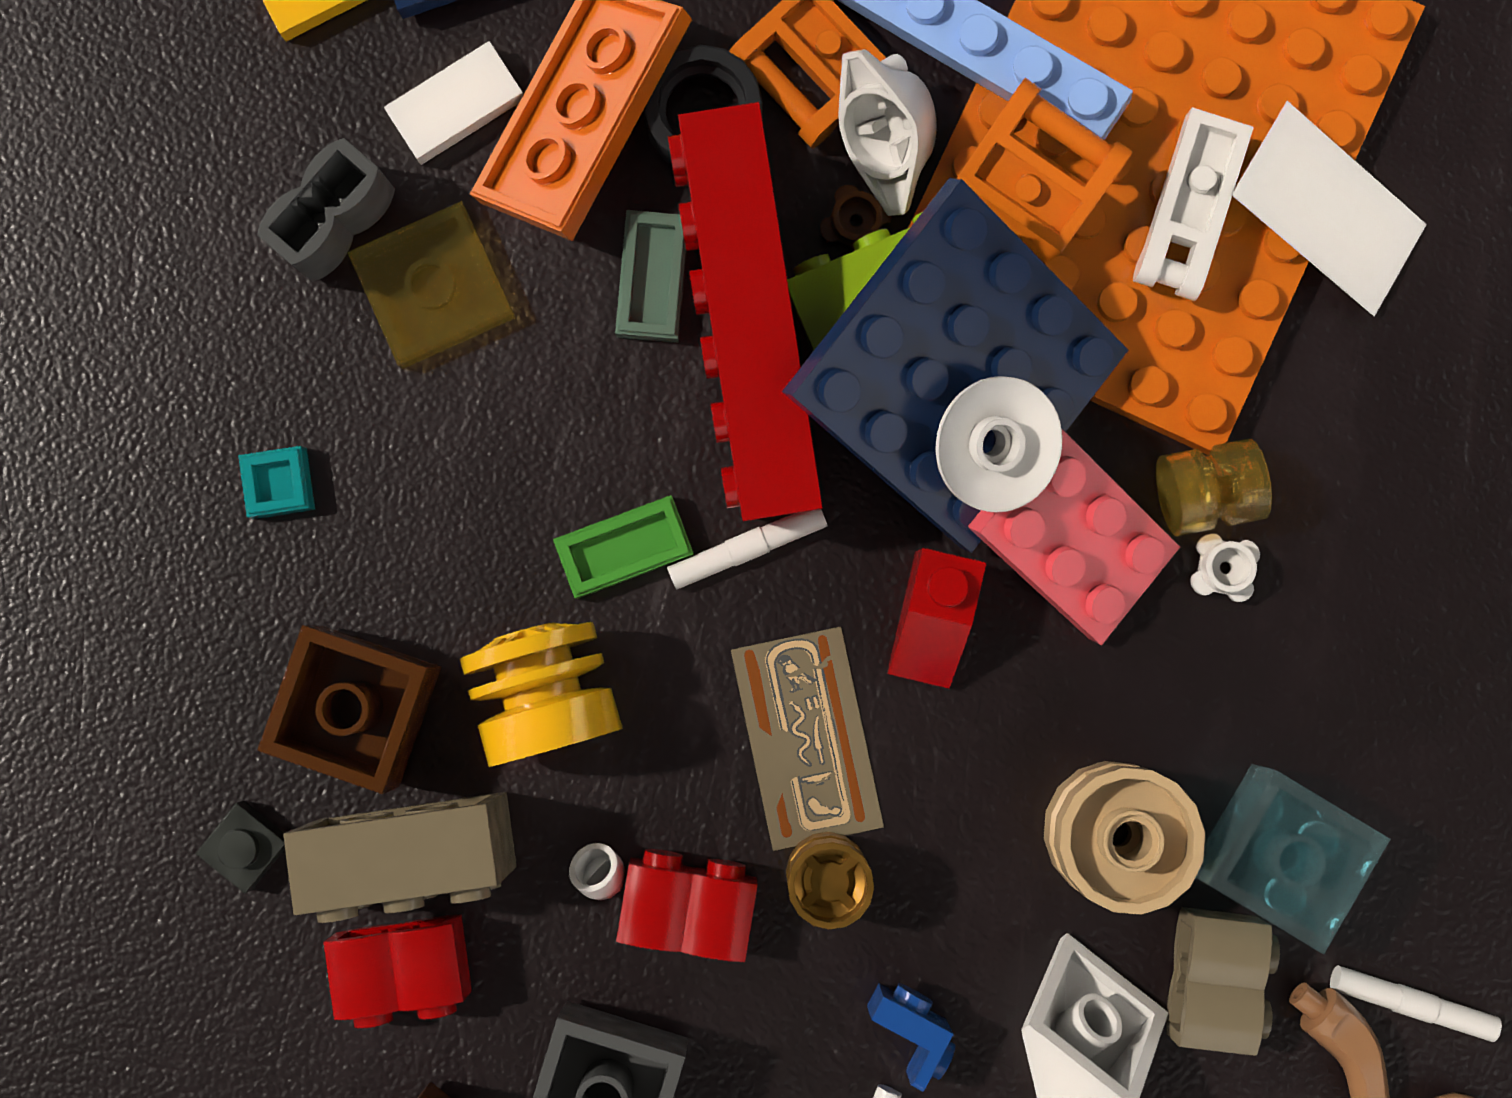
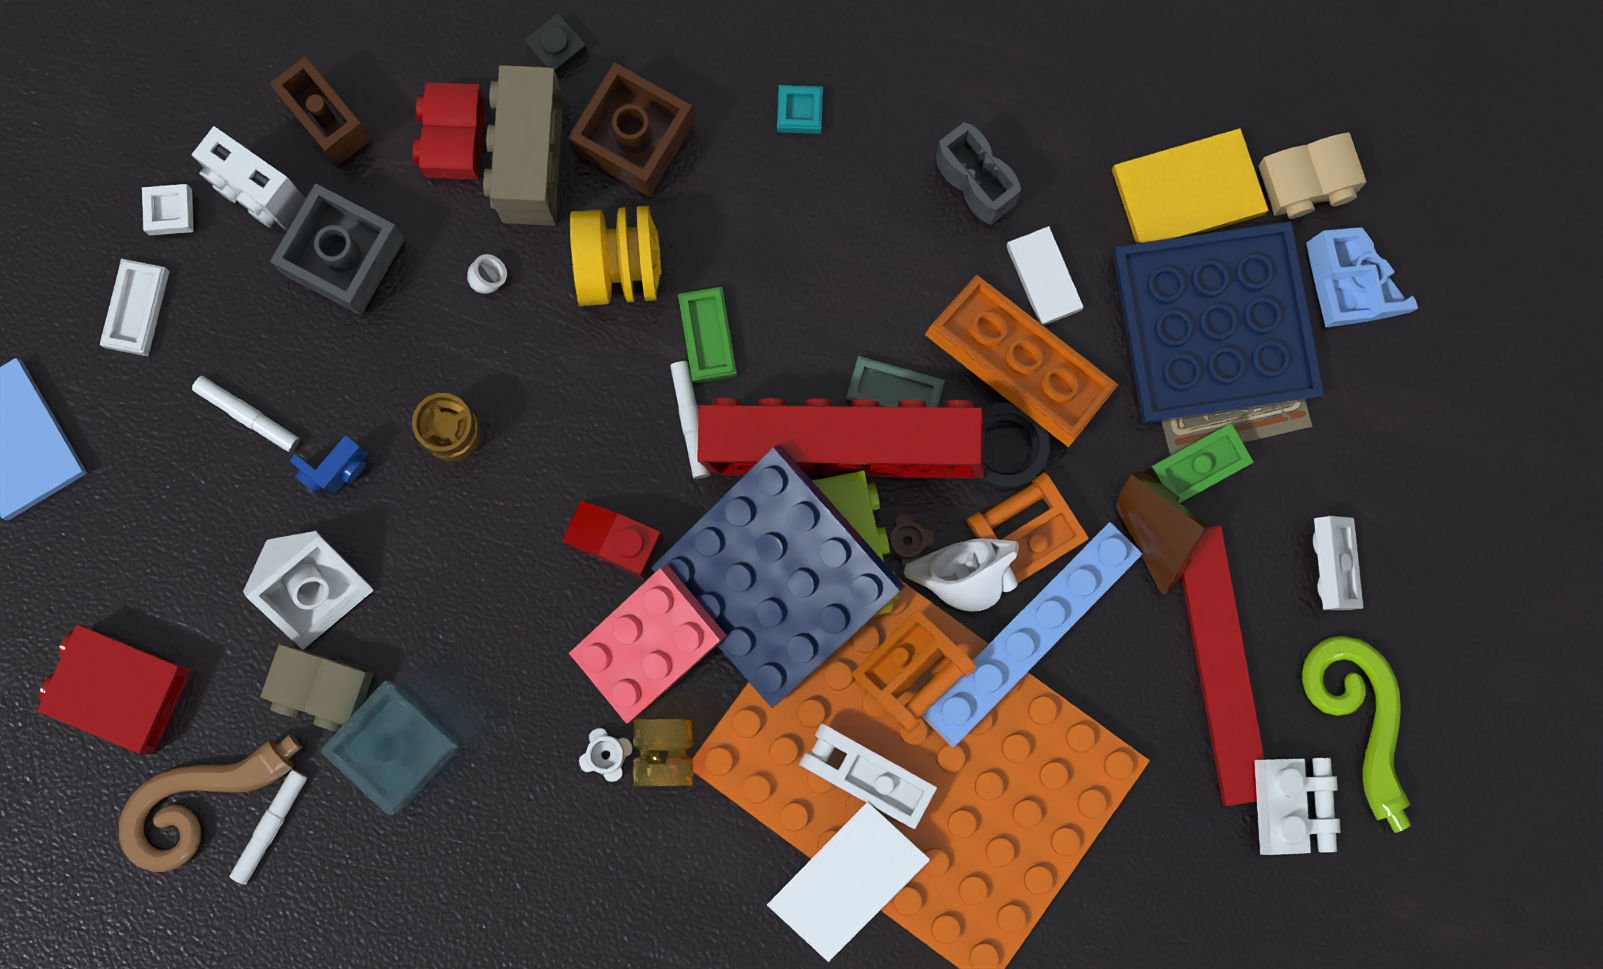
camera: 100 degrees right, 5 degrees down
(431, 285) = (918, 237): clear yellow tile -> none
(687, 906) = (449, 329): red brick -> none
(807, 737) = (549, 437): dark tan sticker -> none
(1024, 449) = (695, 590): white dish -> none
(1161, 844) = (404, 632): tan wheel -> none

